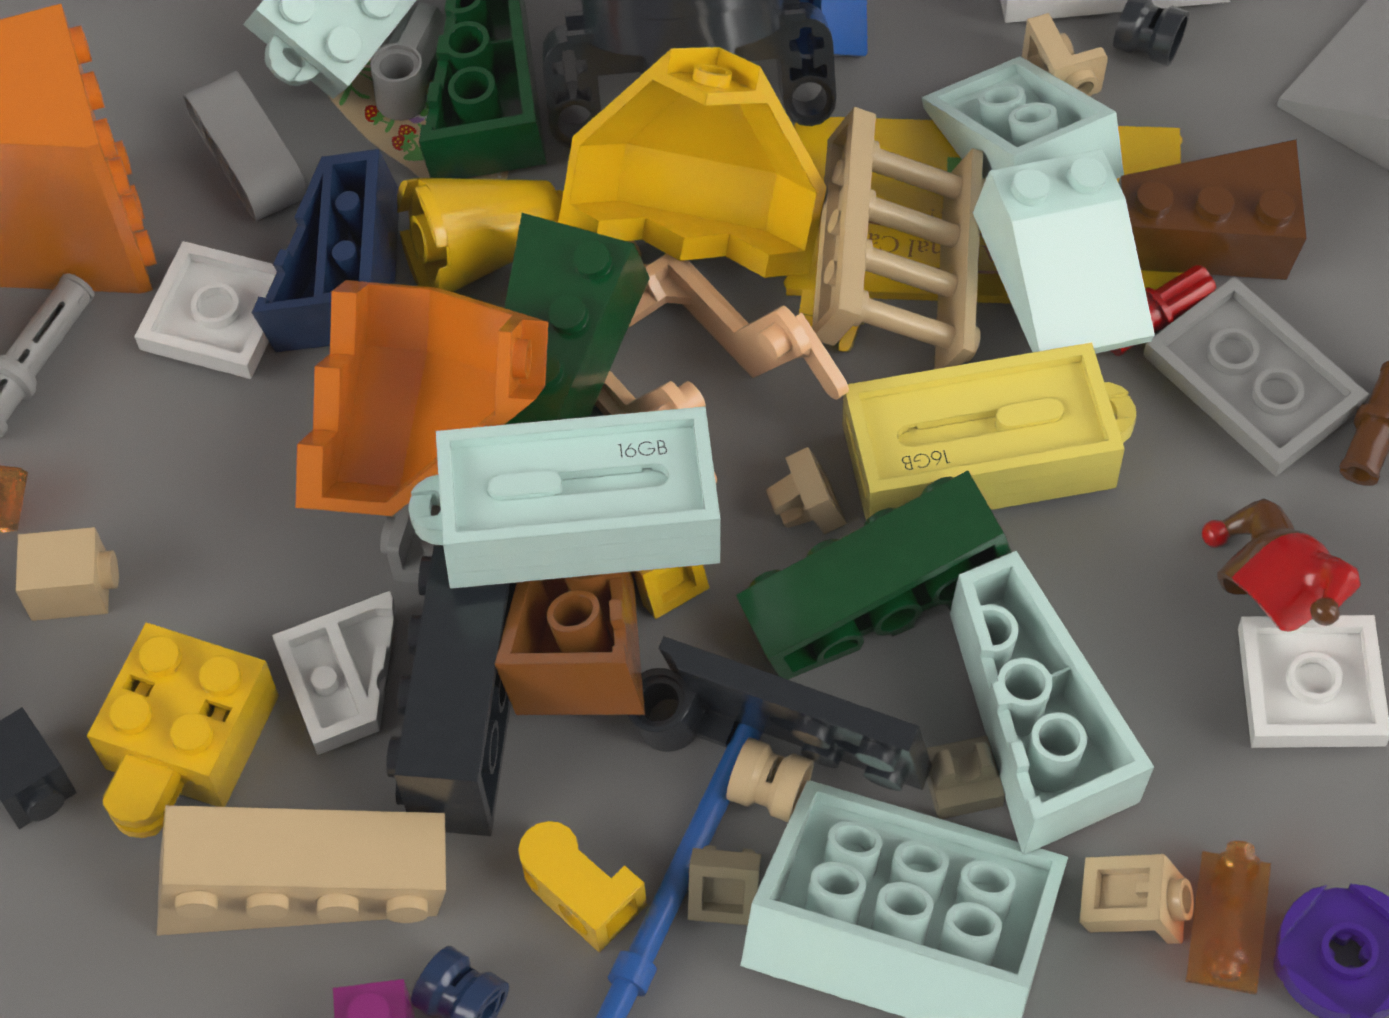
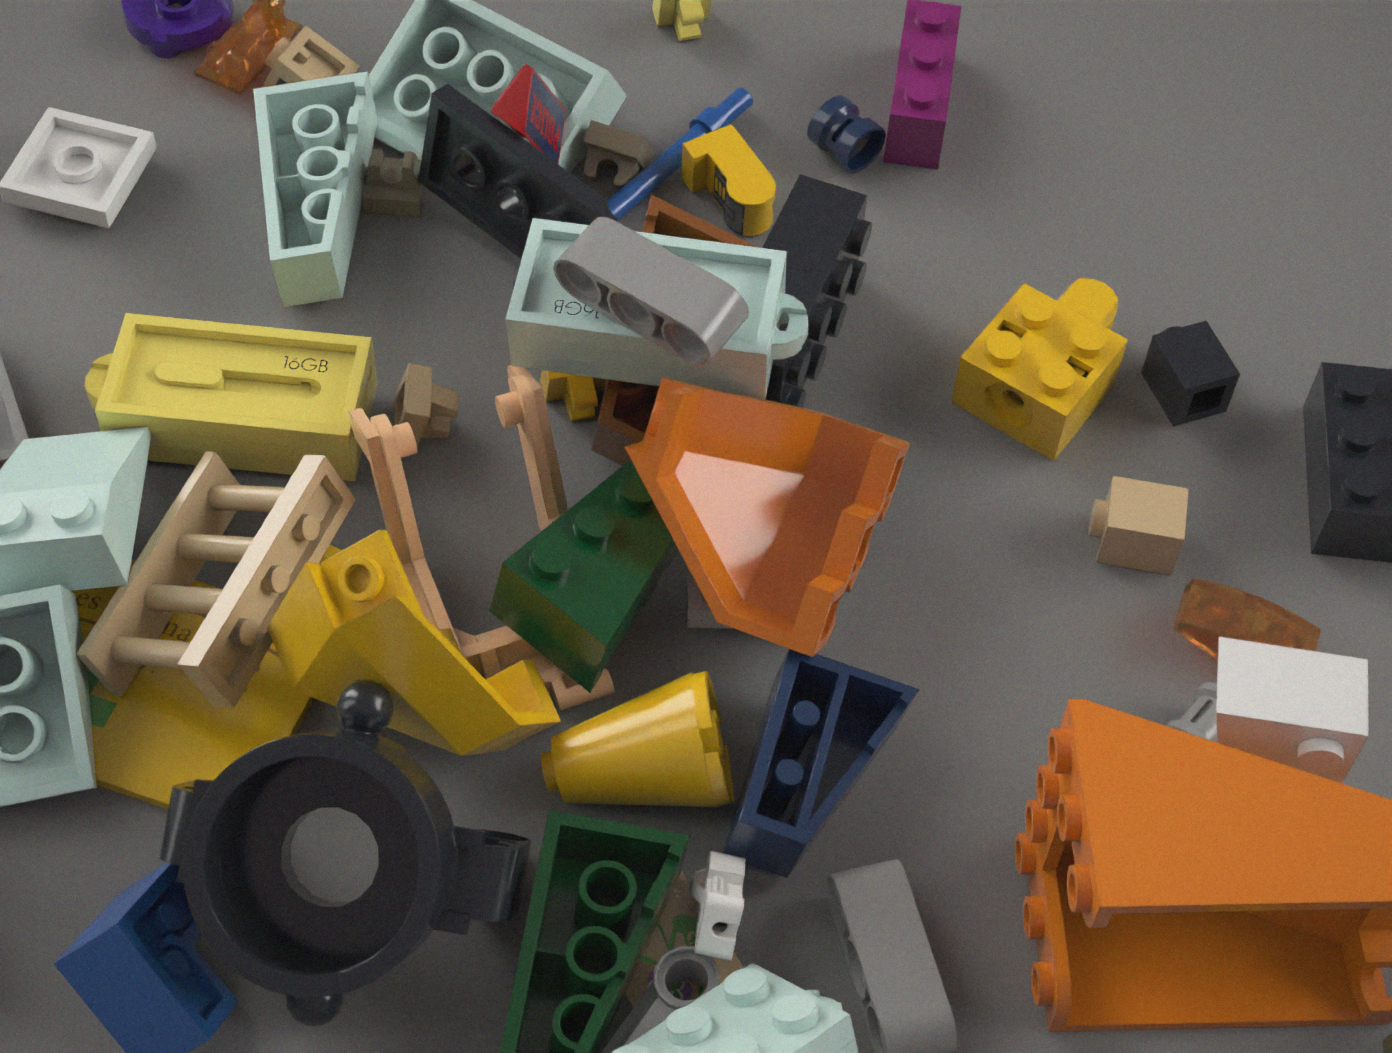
camera: 170 degrees left, 5 degrees down
(206, 311) = (954, 764): white plate -> none
(297, 867) = (973, 227): tan wedge -> none
(340, 670) = (896, 382): white wing -> none
(386, 119) = (718, 904): none -> white piece
(563, 432) = (651, 291): none -> light grey beam
(809, 783) = (532, 112): none -> red slope
(873, 577) = (405, 300): dark green wedge -> none
(1282, 567) = (49, 221): red piece -> none

